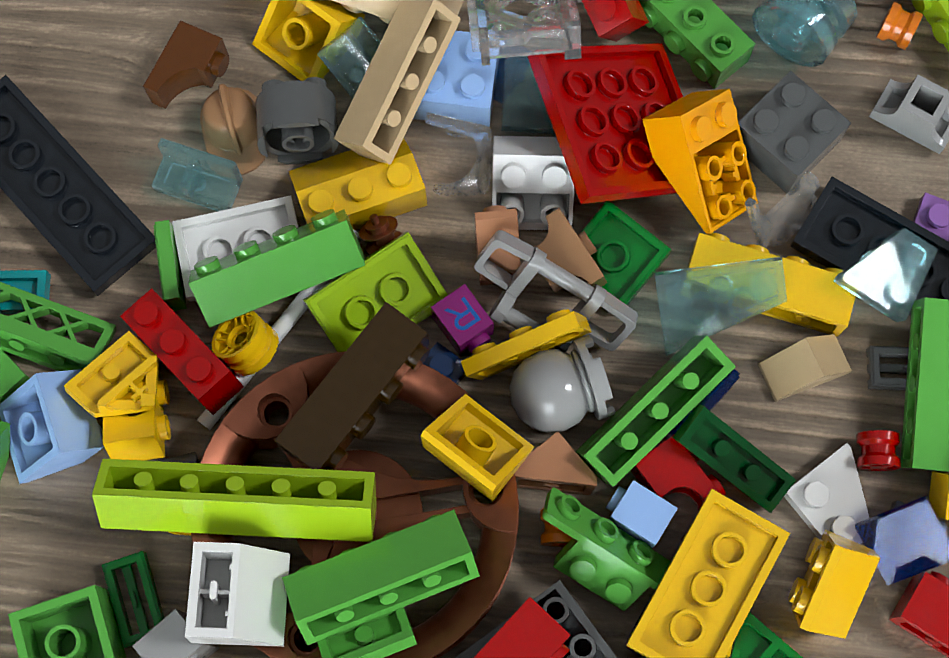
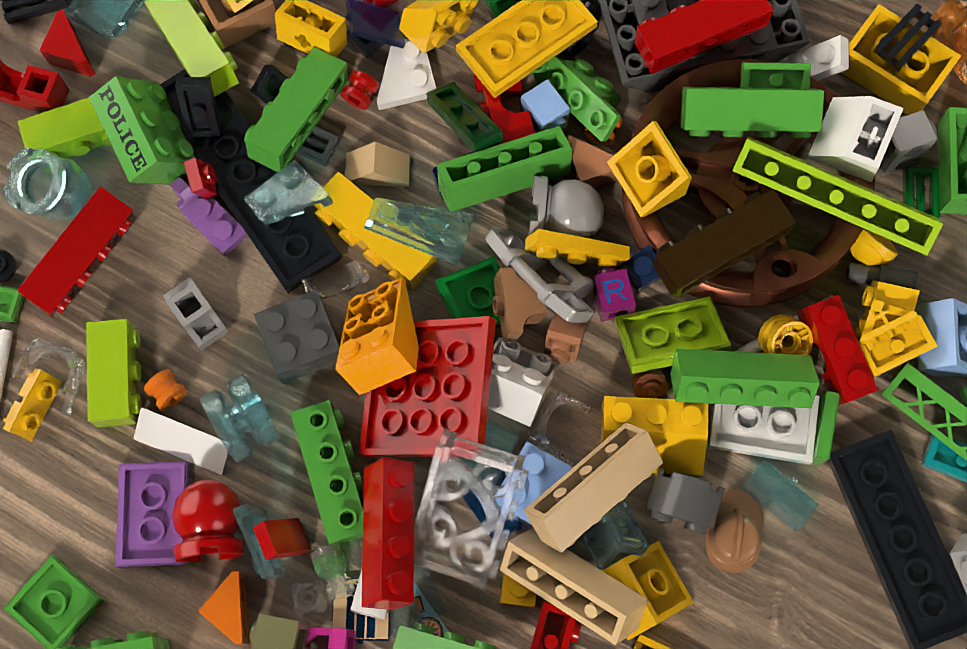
camera: 155 degrees left, 0 degrees up
(187, 61) = (753, 603): reddish brown arch -> none

